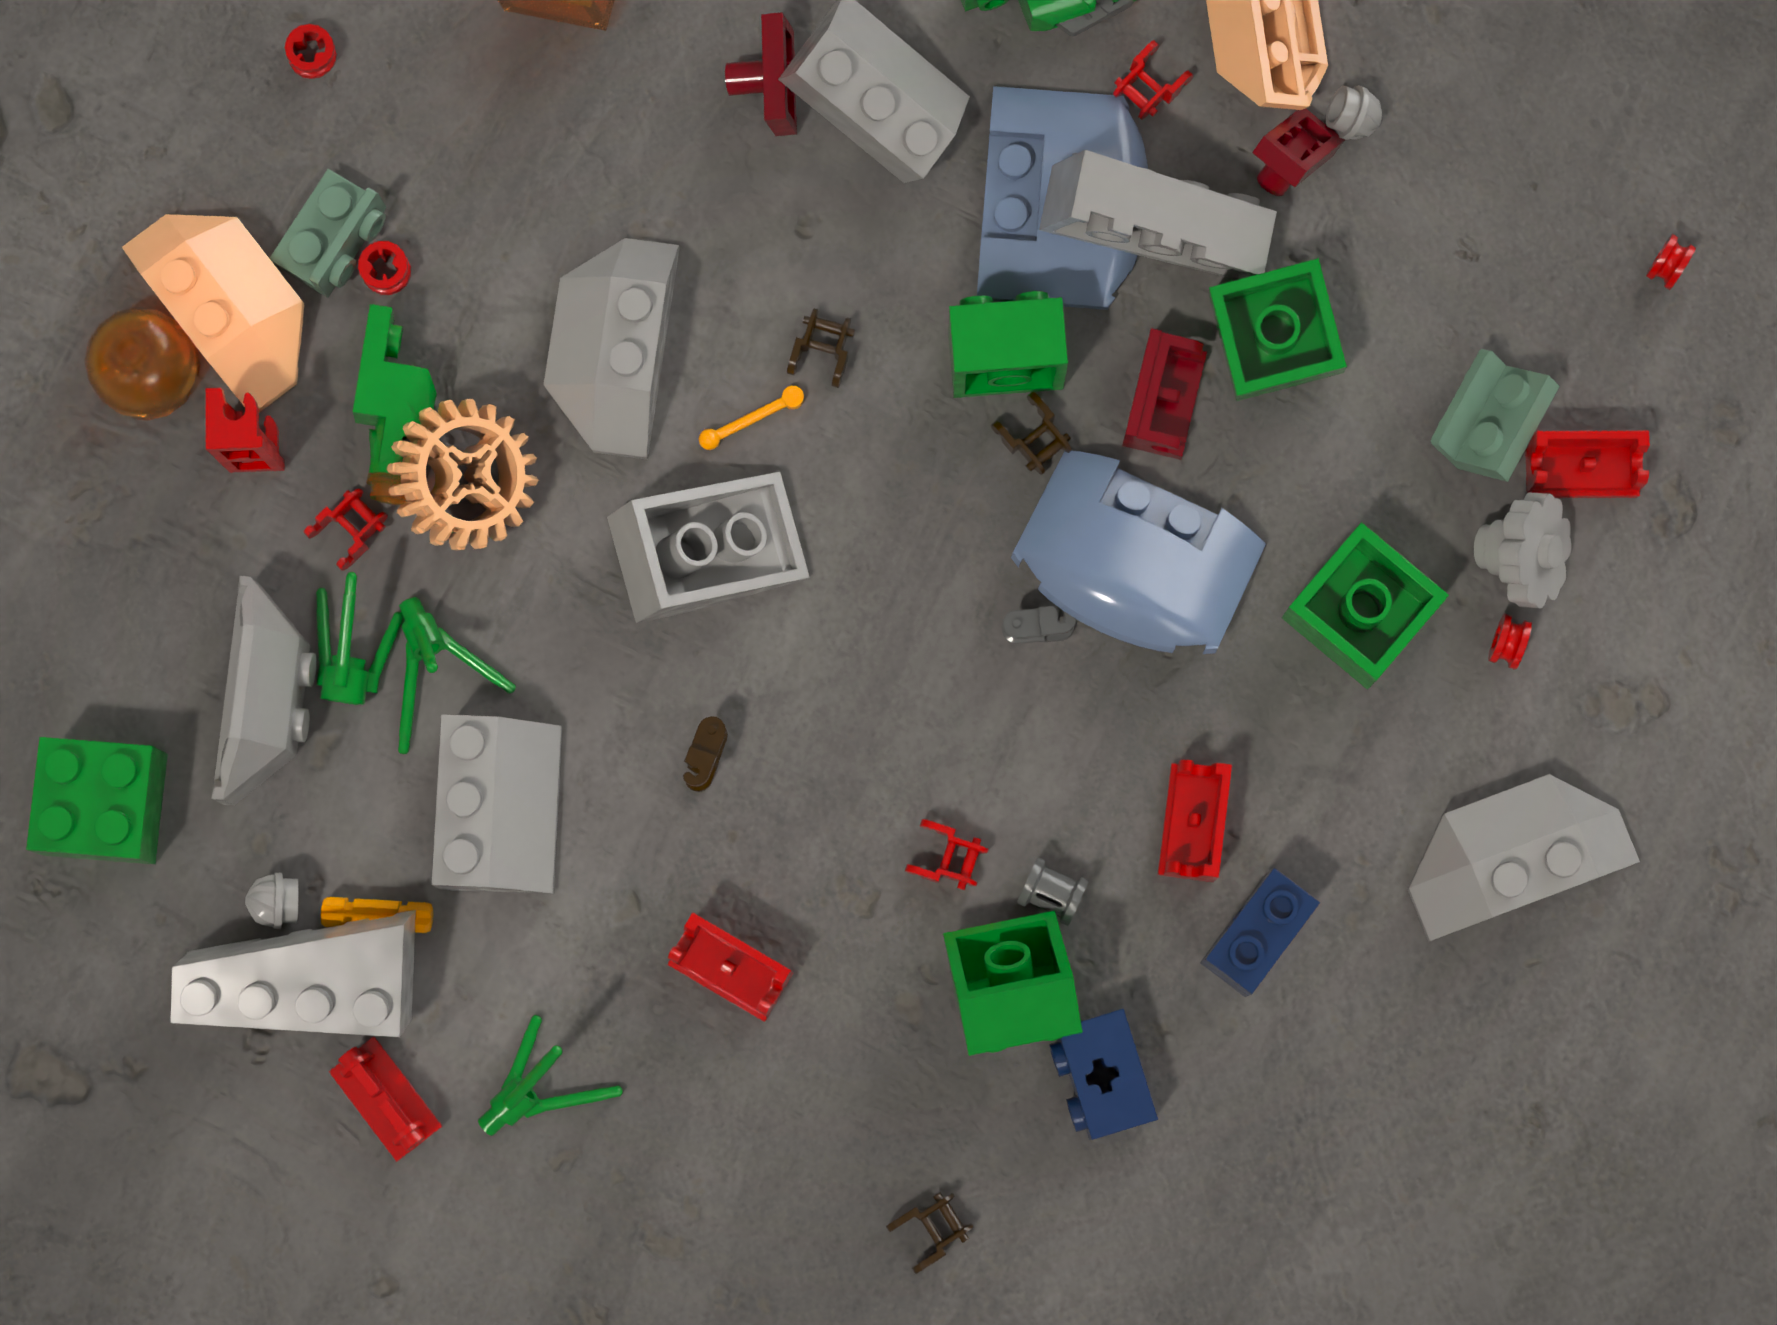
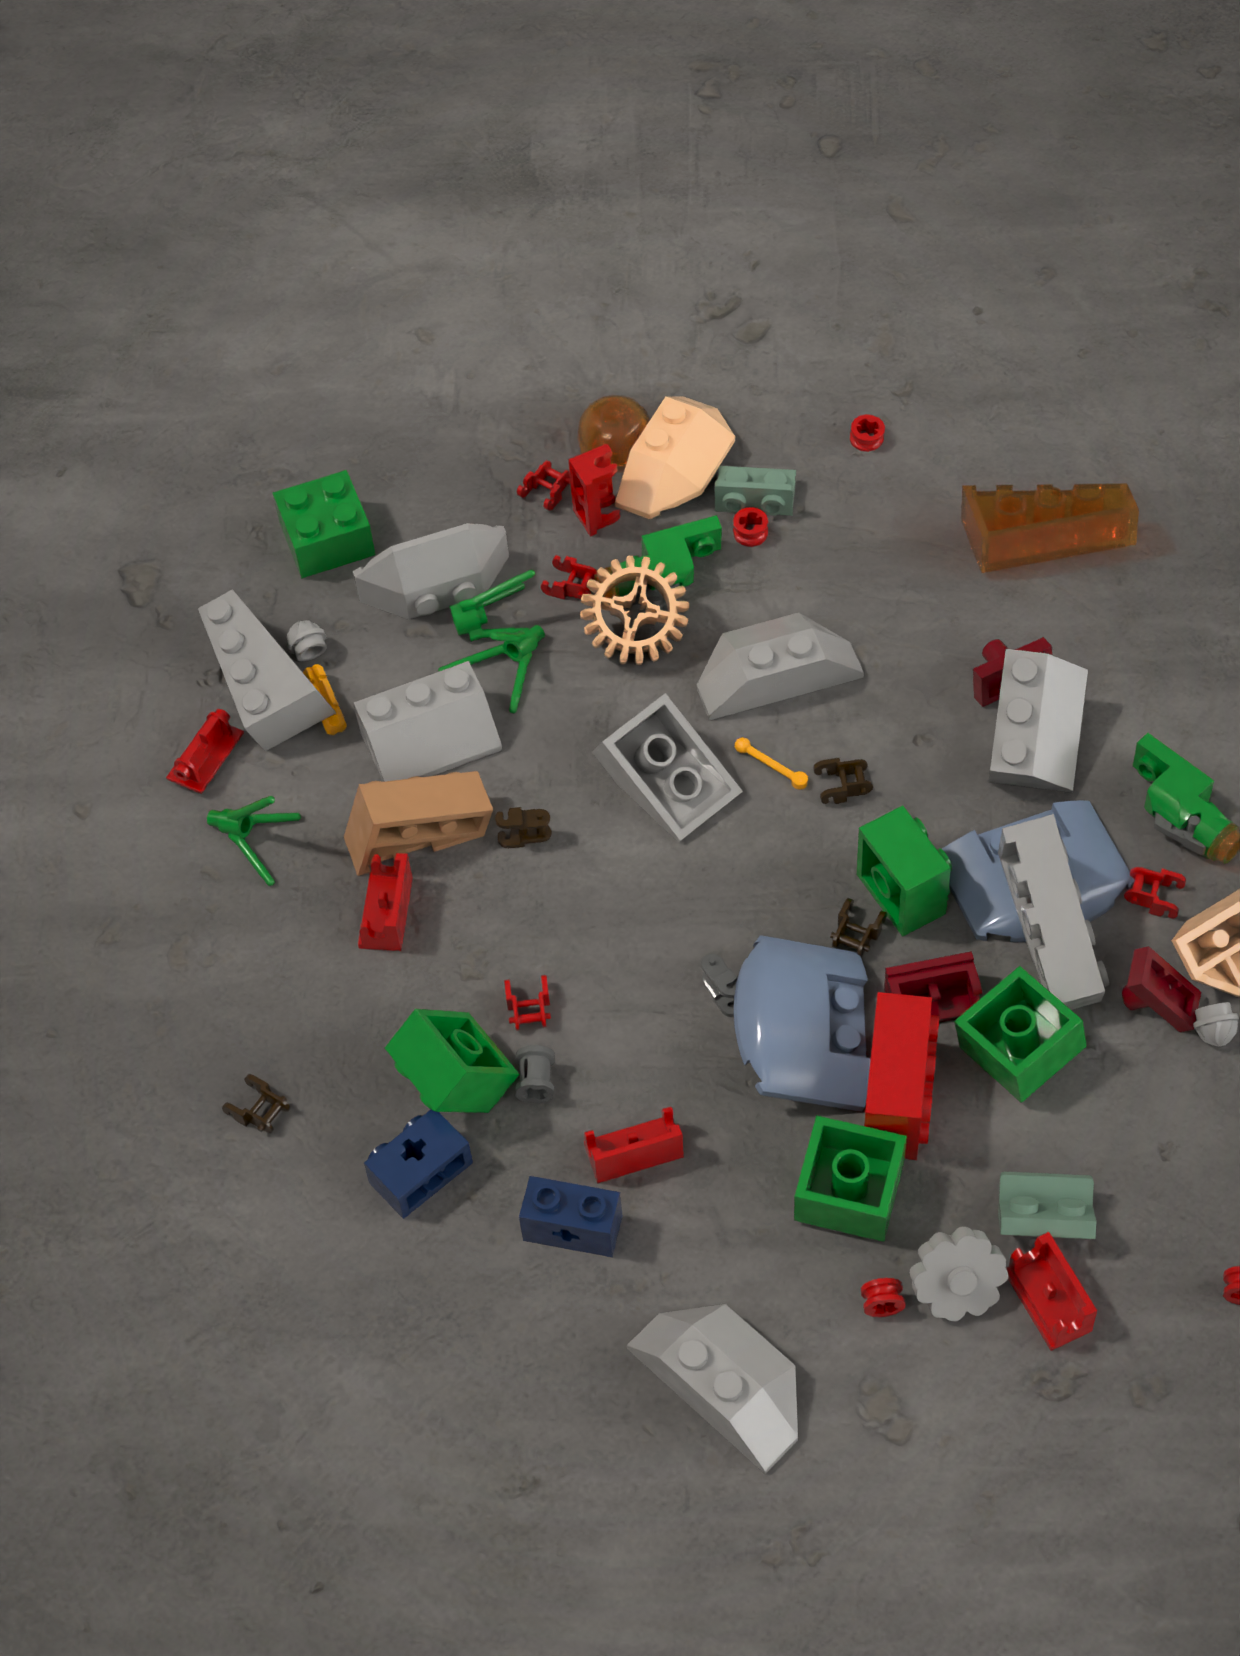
camera: 65 degrees right, 25 degrees down
(160, 500) = (533, 480): none -> red piece
(629, 877) = (415, 815): none -> medium nougat wedge
(1271, 488) = (902, 1068): none -> red brick

